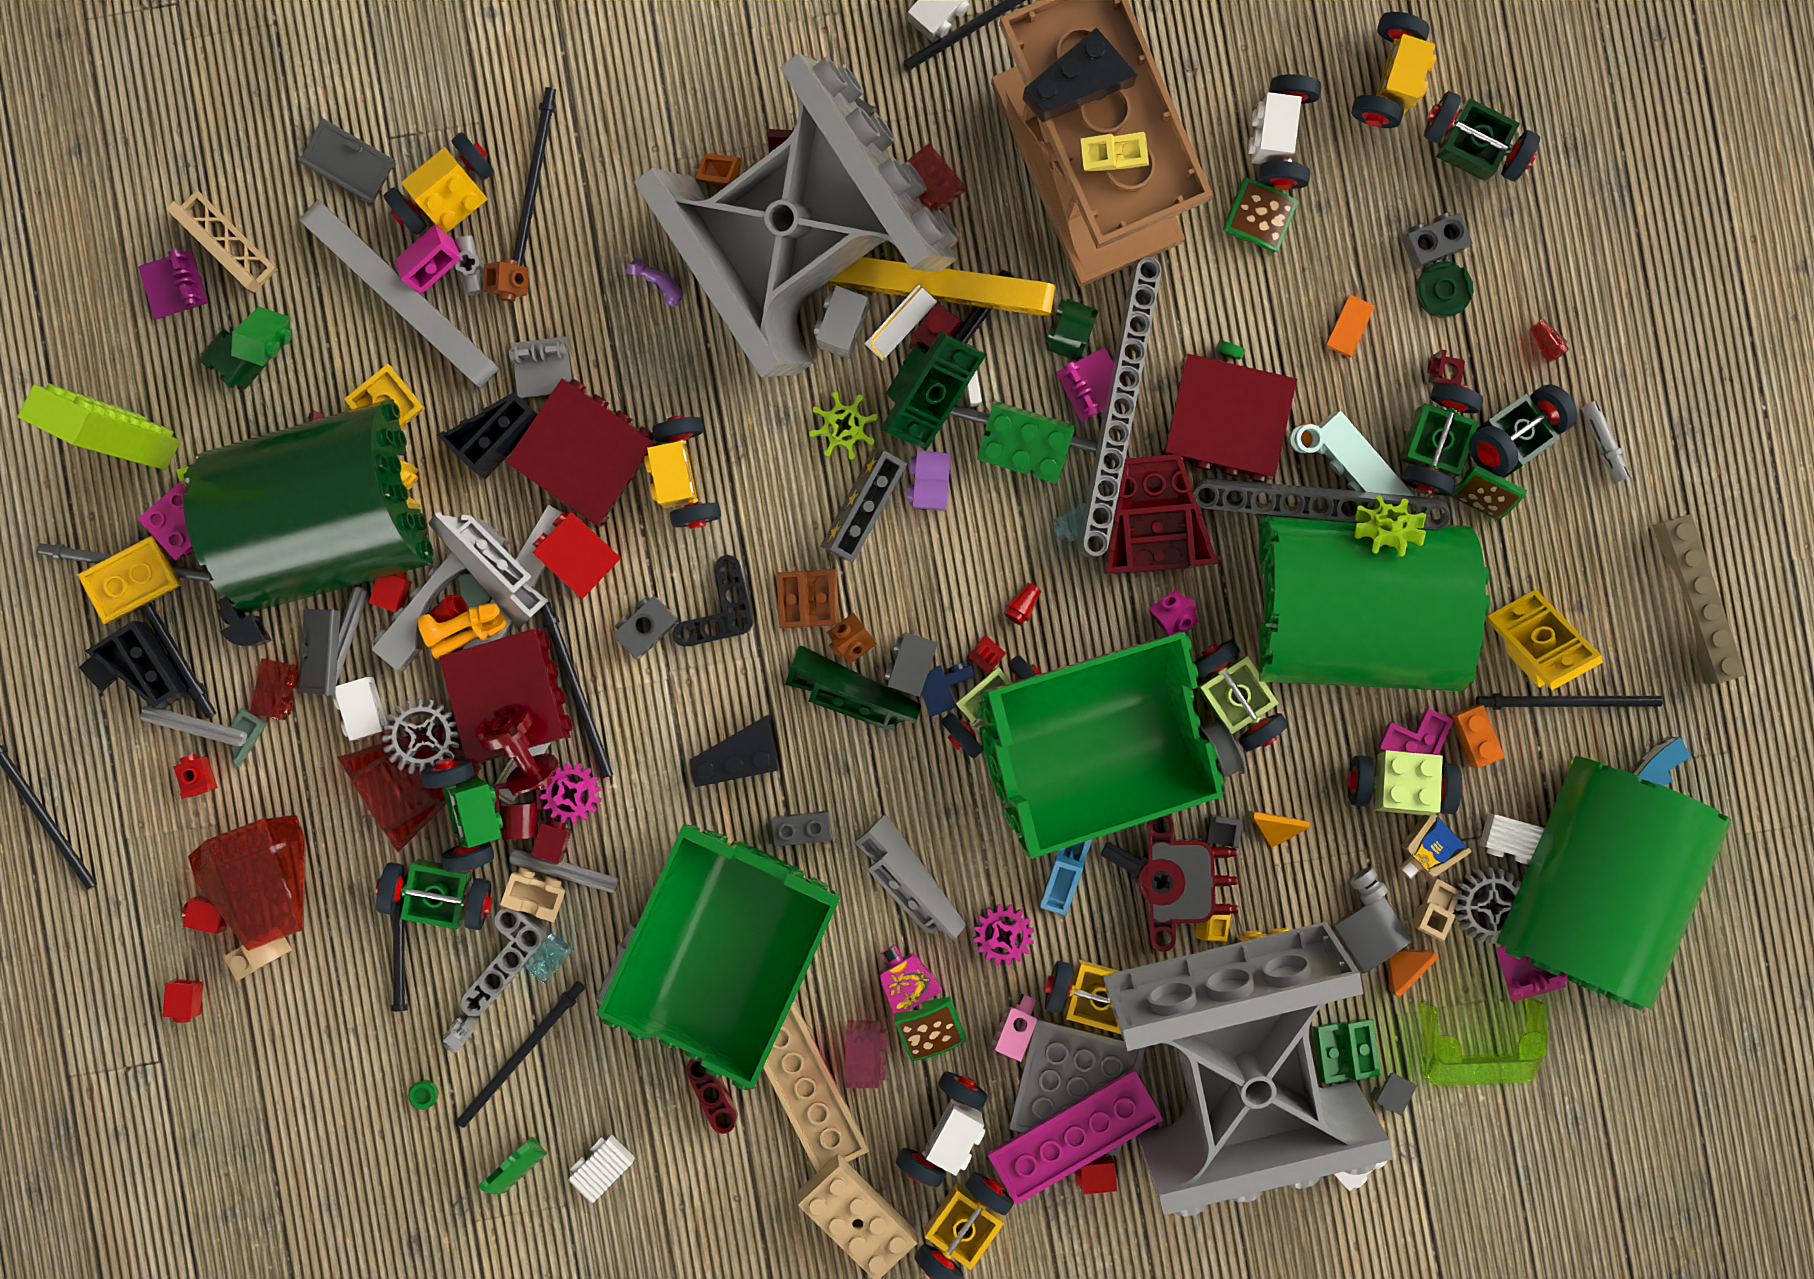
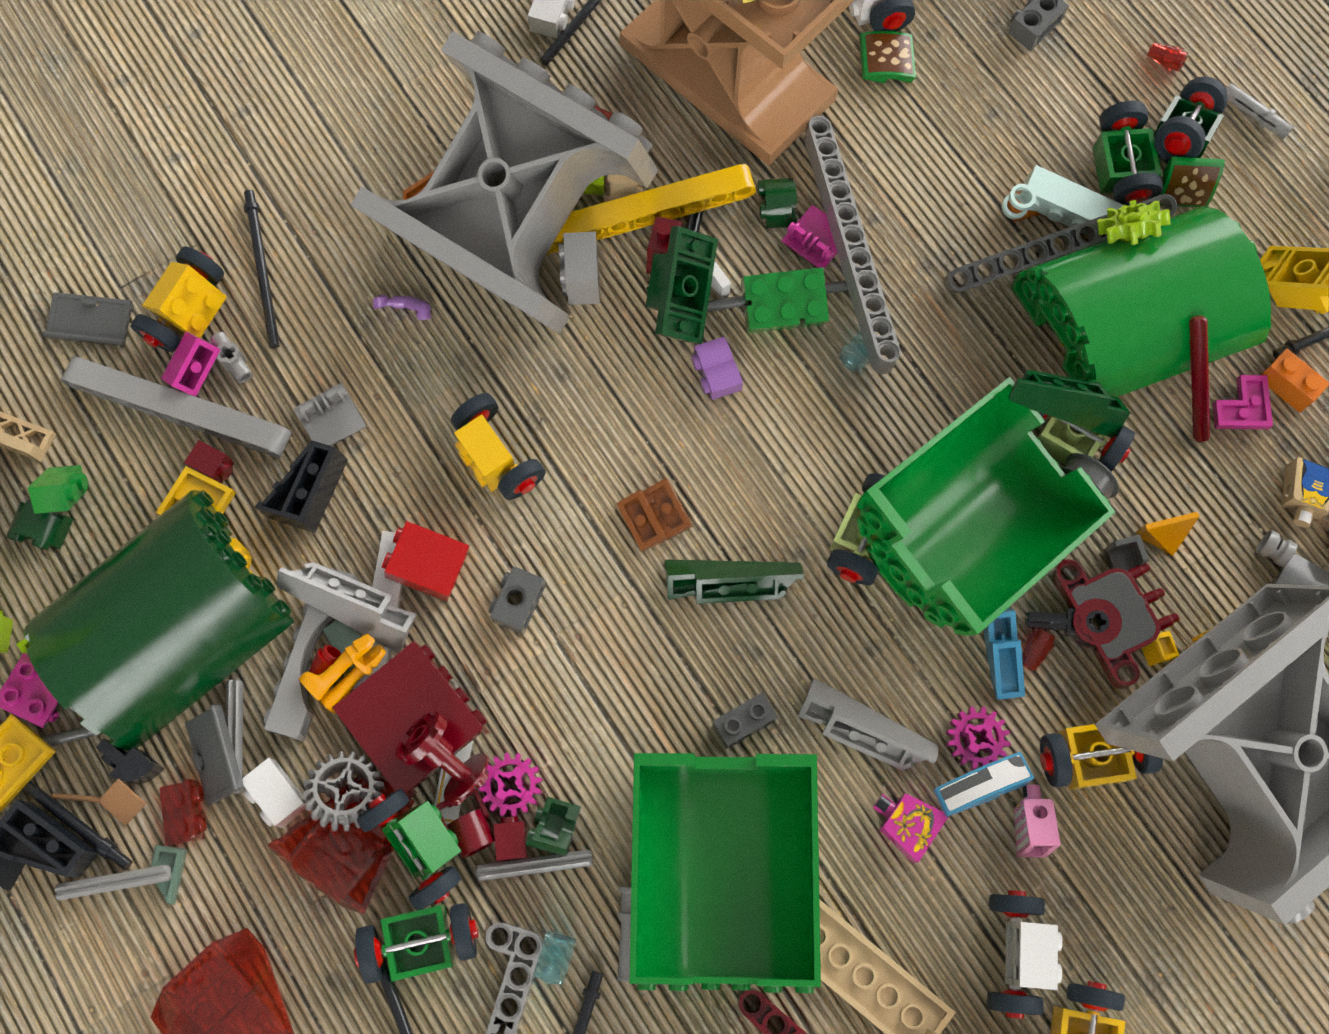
camera: 25 degrees left, 15 degrees down
(203, 776) = (140, 934): red brick -> none
(220, 653) = (117, 800): none -> medium nougat piece
(390, 592) = (263, 670): red brick -> none
(411, 367) = (209, 462): none -> dark red brick
(505, 279) = (268, 354): dark orange brick -> none
(533, 894) = (515, 901): tan cylinder -> none
(551, 623) = (427, 635): black bar -> none
(581, 451) = (394, 469): dark red panel -> none
(594, 848) = (554, 826): none -> dark green cylinder
(725, 619) = (586, 564): black beam -> none
(738, 756) = (654, 680): black wedge -> none
(831, 419) = (610, 351): lime gear -> none
(850, 639) = (710, 529): dark orange brick -> none
(862, 1054) = (906, 912): clear pink brick -> none
(863, 505) = (668, 410): dark grey brick -> none
(900, 322) = (631, 251): white sticker -> none
(911, 664) = (776, 524): dark grey brick -> none
(930, 1029) = (956, 859): slope -> none
(936, 687) = (808, 541): dark blue brick -> none
(984, 978) = (984, 784): none -> slope
(986, 654) = (836, 495): red tile -> none
(1022, 605) = (847, 439): red cone -> none
(1065, 1067) = (1120, 856): light grey plate -> none
(1075, 1136) = (1144, 902): dark pink plate -> none
(1097, 1176) = (1183, 934): red brick -> none
(1099, 878) = (1037, 647): none -> clear red cone
(1157, 519) = (931, 317): dark red wedge -> none
(1175, 613) = (980, 383): dark pink brick -> none
(1230, 350) = (917, 163): green tile -> none
(1230, 417) = (946, 214): dark red panel -> none
(1234, 675) = (1072, 401): none -> dark green wedge
(1349, 326) = (1003, 109): orange tile -> none
(1376, 702) = (1200, 378): none -> dark red axle
(1405, 783) = (1259, 441): yellowish green brick -> none
(1436, 367) = (1093, 106): dark red bracket -> none
(1444, 289) = (1063, 54): dark green tile -> none

